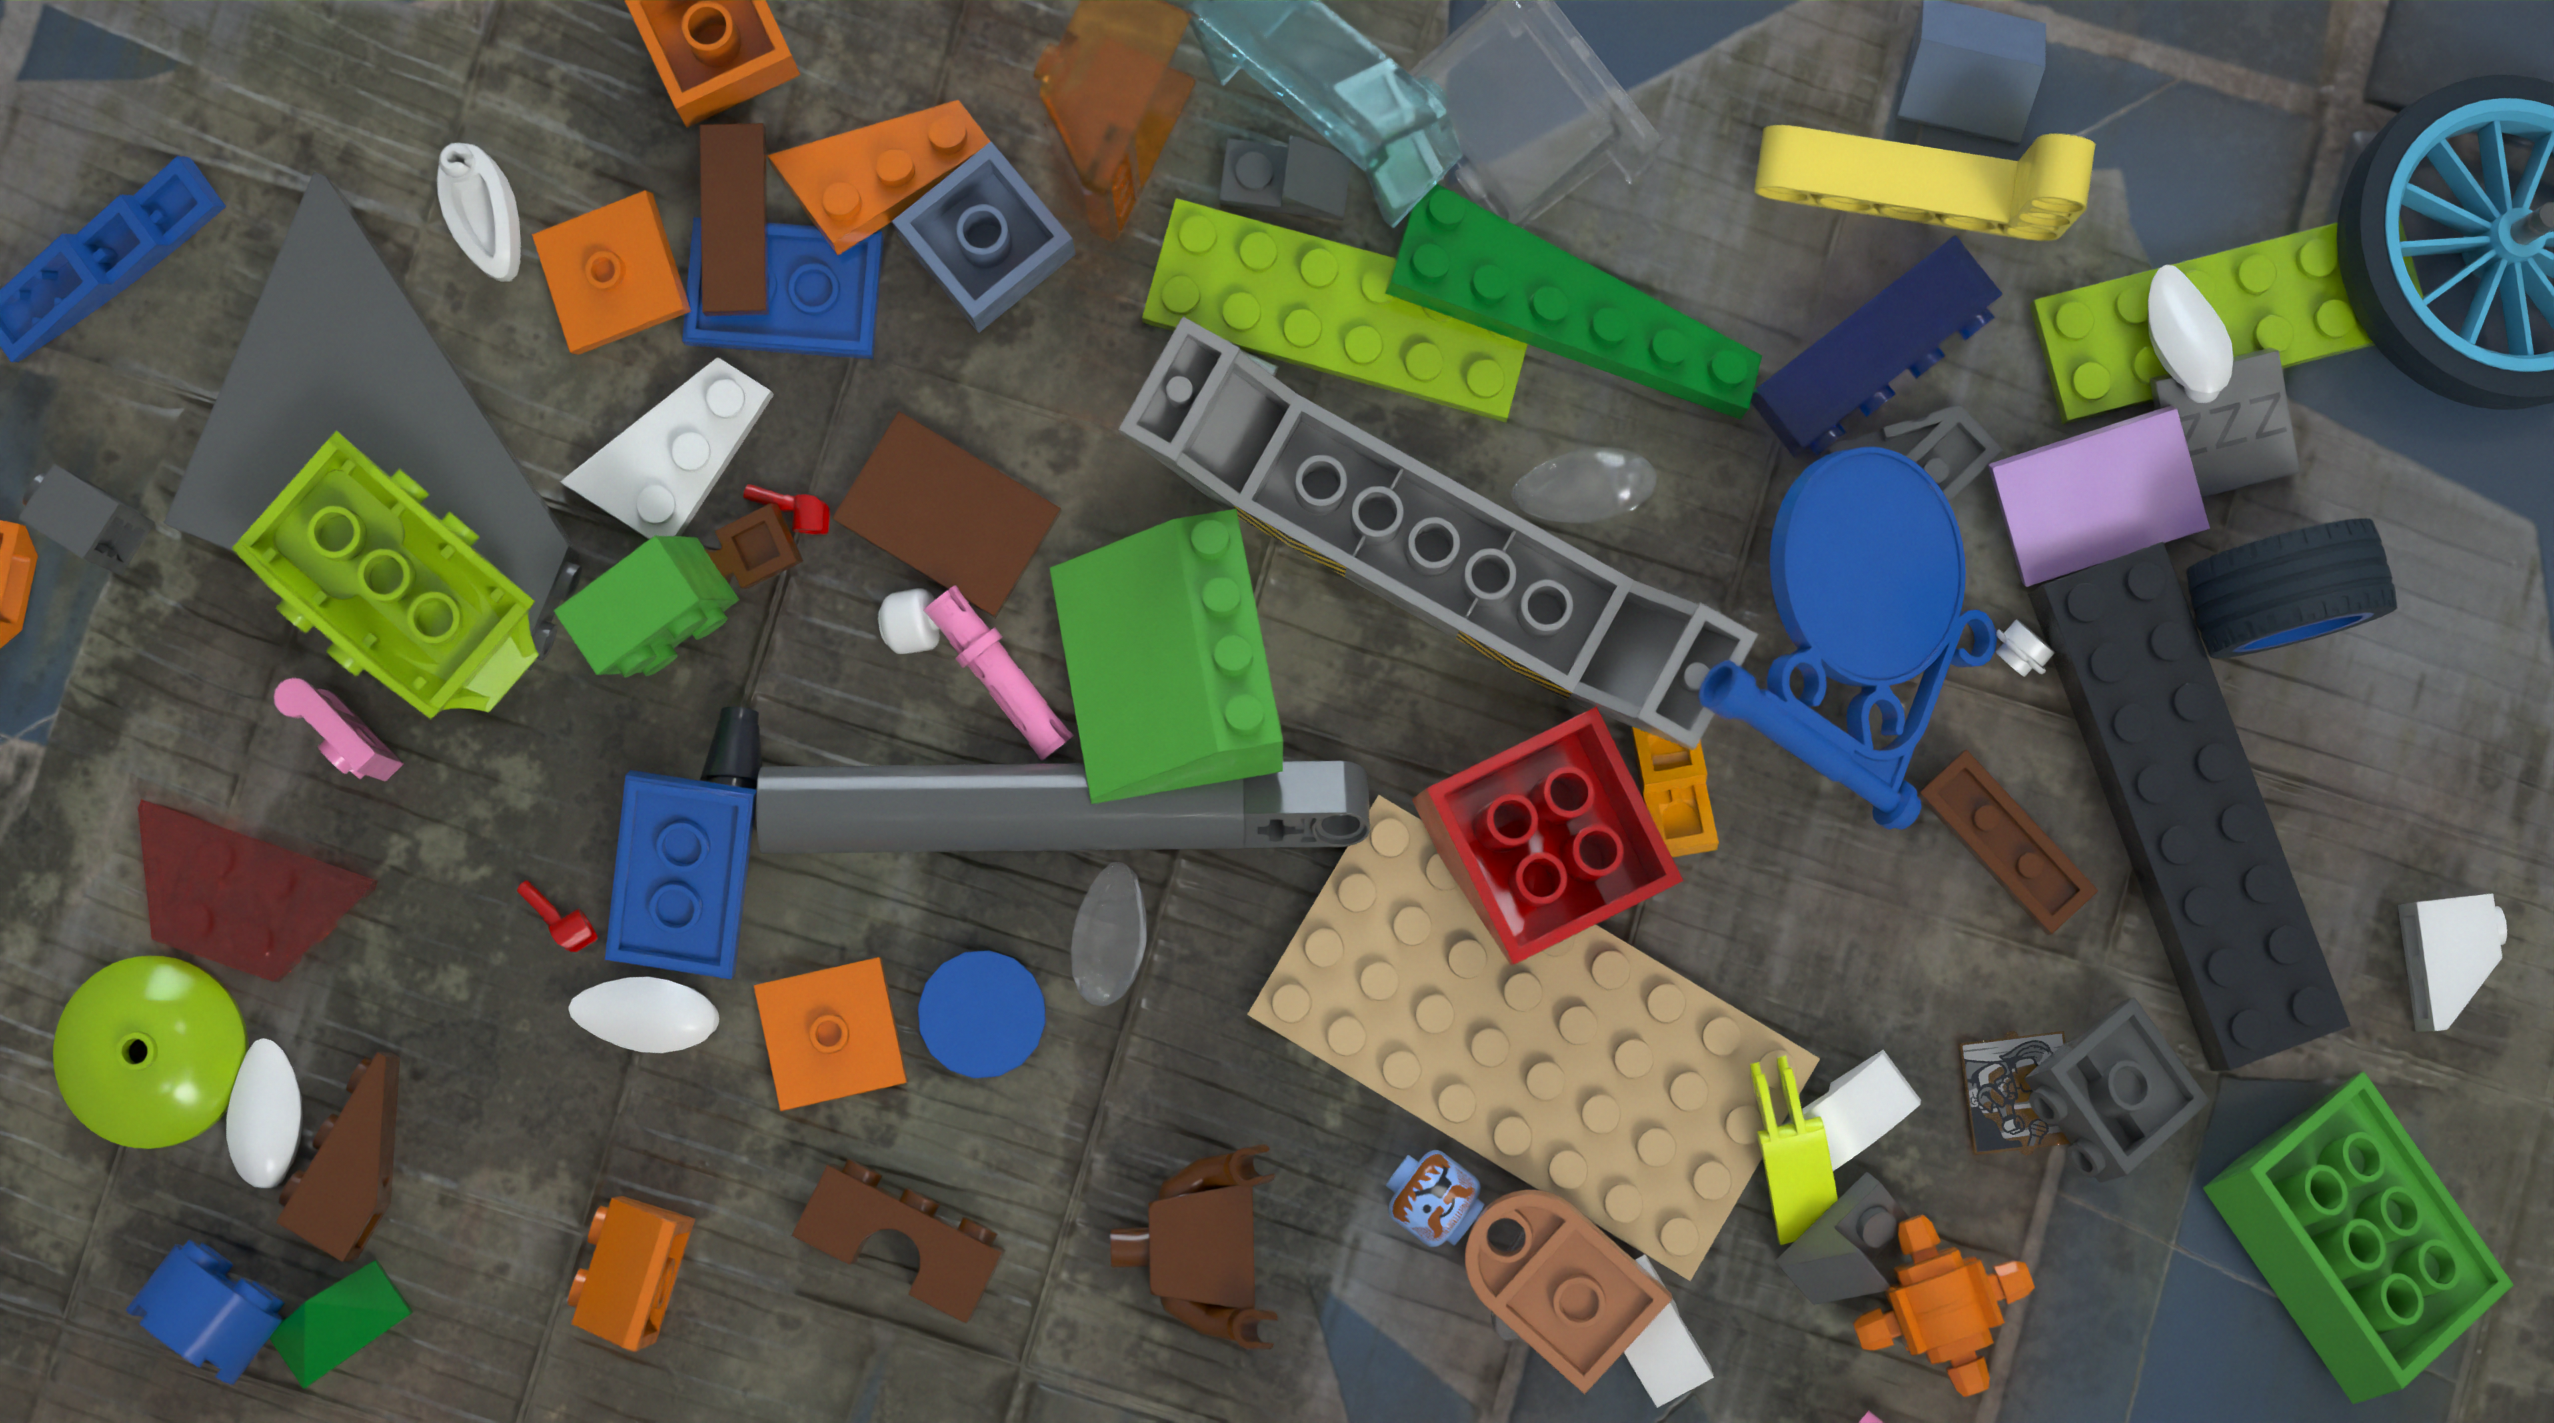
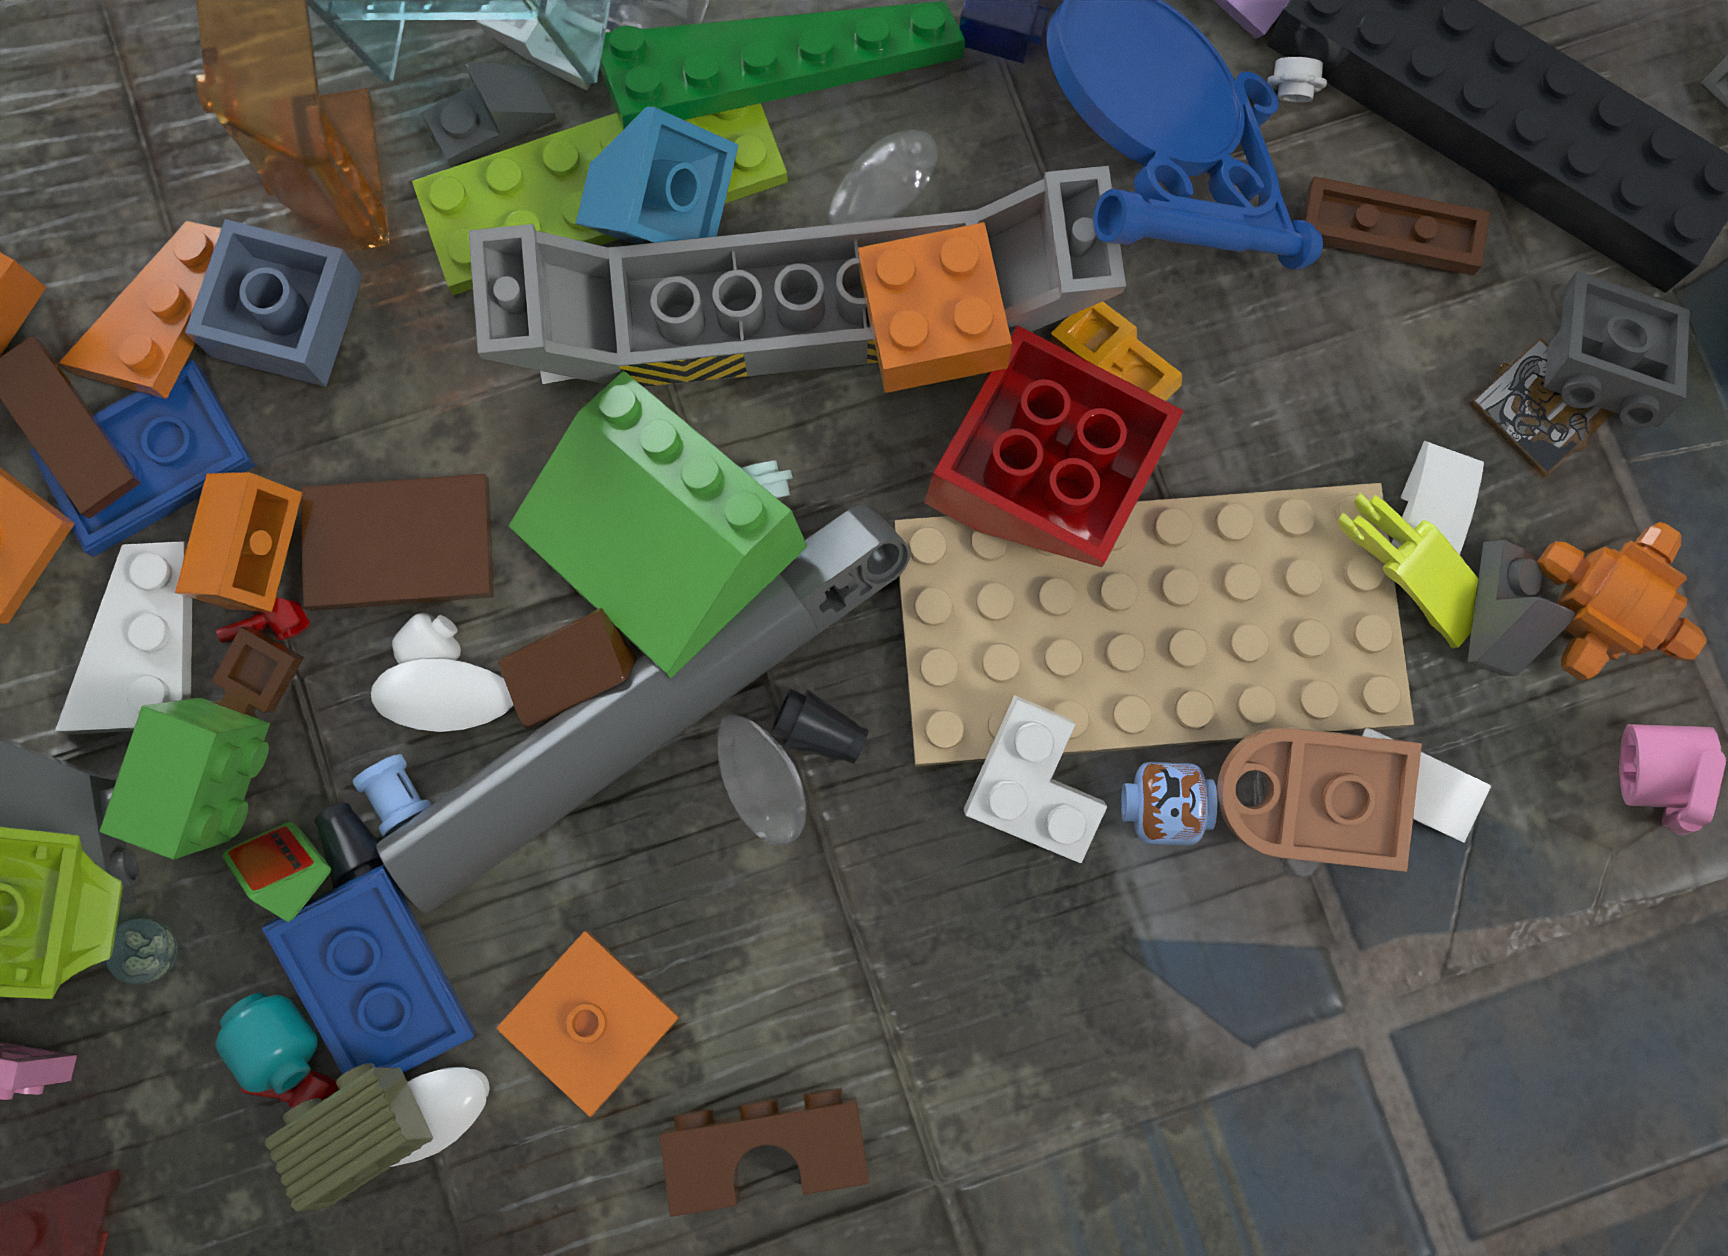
camera: 35 degrees left, 5 degrees down
(514, 719) = (142, 951): none -> clear light blue tile
(565, 867) = (266, 1043): none -> teal head
(582, 990) = (347, 1137): none -> olive brick
(670, 732) = (278, 869): none -> slope
(798, 732) = (390, 793): none -> light blue bush
(816, 428) = (239, 541): none -> orange brick
(895, 676) = (440, 695): none -> white arm
(982, 1014) = (701, 917): blue tile -> none
(990, 662) = (485, 622): bright pink pin -> none
(1013, 731) = (566, 667): none -> reddish brown slope
(1187, 926) = (818, 728): none -> black cone
(1203, 1247) = (1018, 976): reddish brown torso -> none
(1292, 683) = (770, 477): none -> light aqua plate
(1316, 1097) = (1017, 787): none -> white plate
(1379, 367) = (658, 181): none -> dark azure slope
(1526, 649) = (934, 307): none -> orange brick

